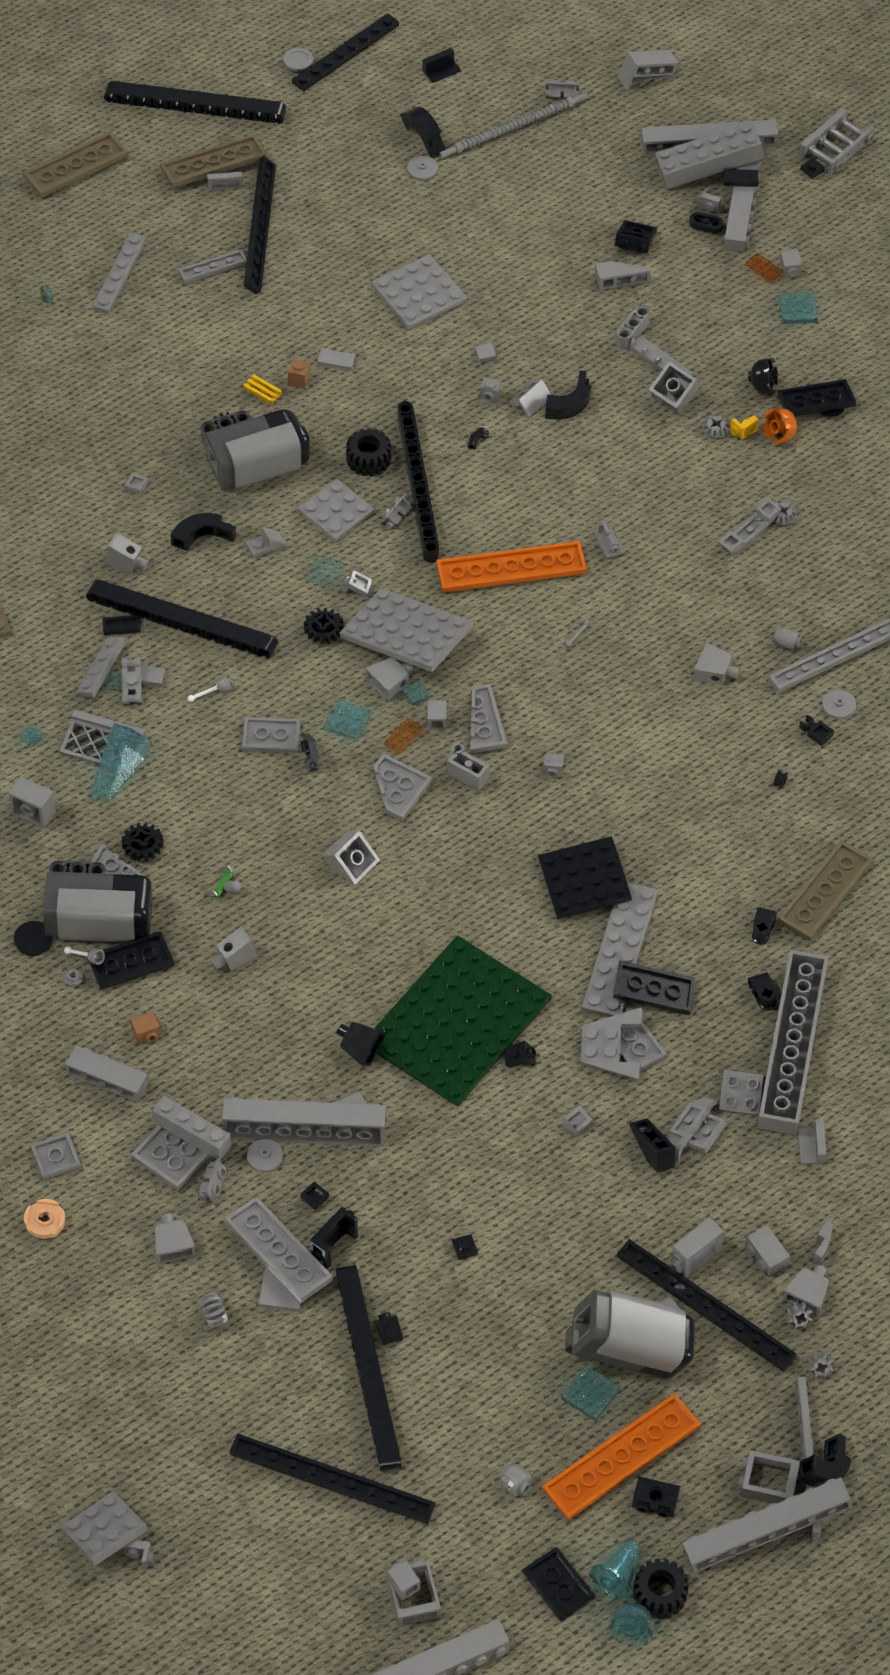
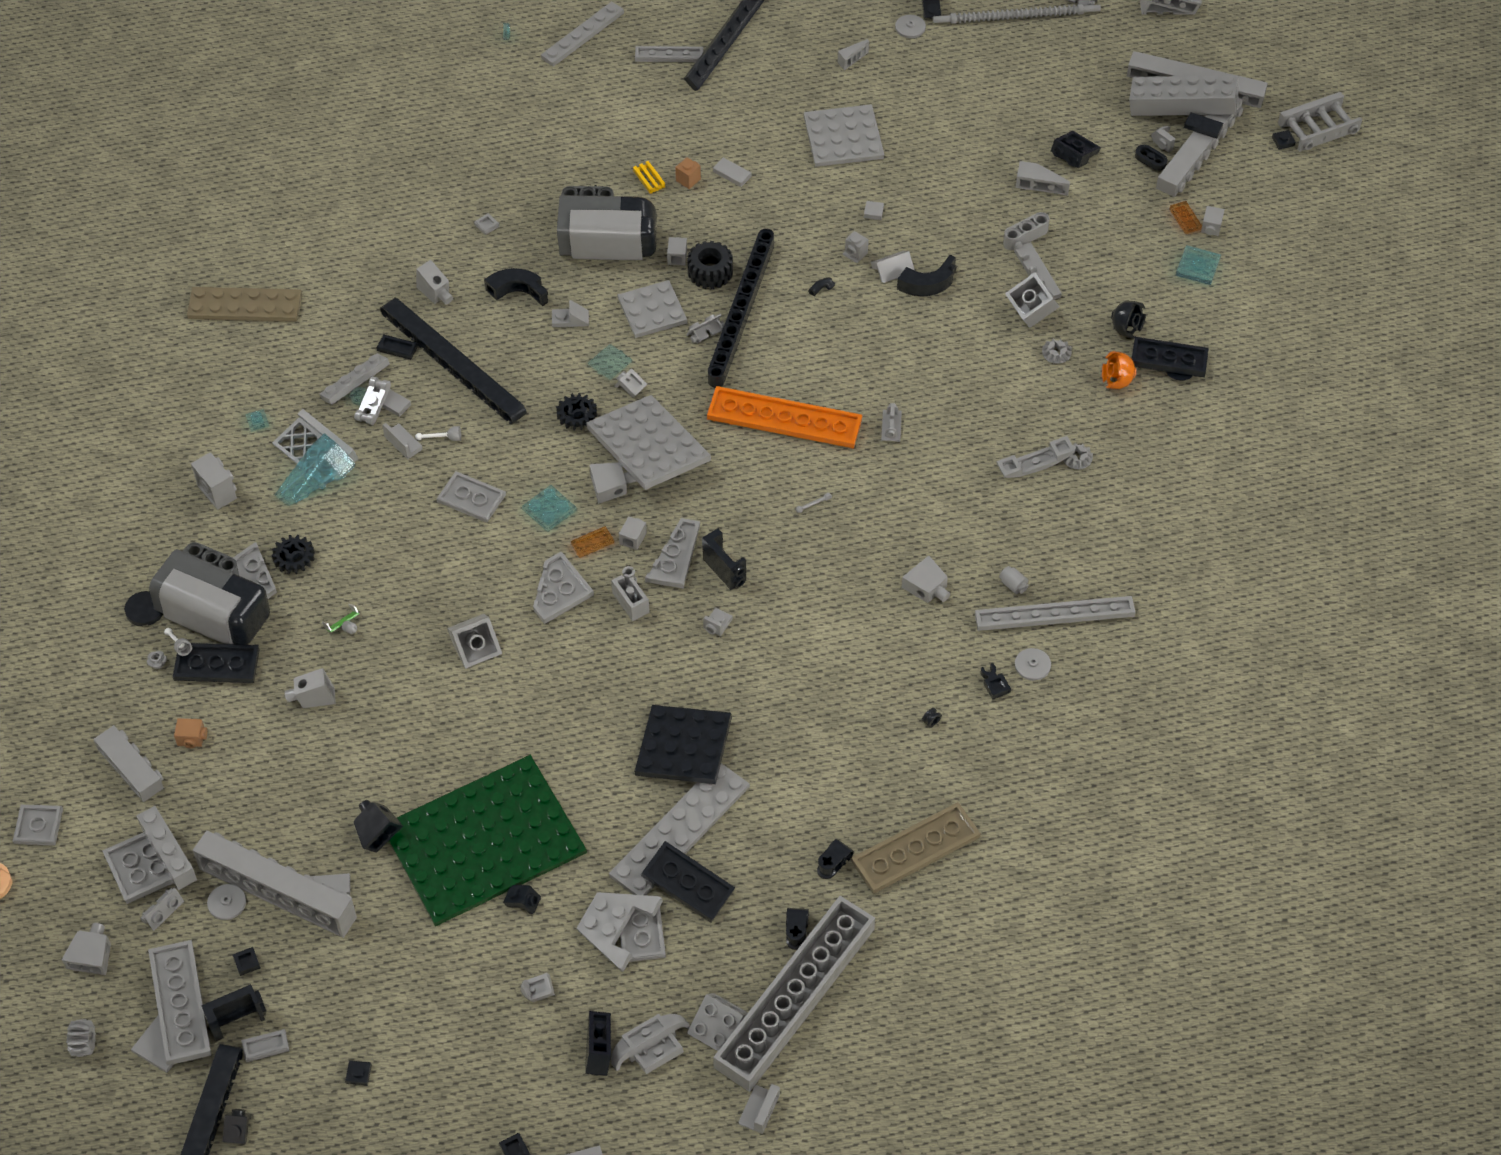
camera: 25 degrees right, 0 degrees up
(178, 707) = (402, 440): none -> light grey panel
(309, 746) = (492, 522): black hinge -> none
(330, 449) = (677, 251): none -> light grey brick
(372, 1256) = (265, 1045): none -> light grey tile
(384, 213) = (852, 54): none -> light grey slope
(415, 693) = (626, 505): clear light blue plate -> none
(531, 711) = (730, 572): none -> black panel
(744, 429) = (1083, 362): yellow bracket -> none

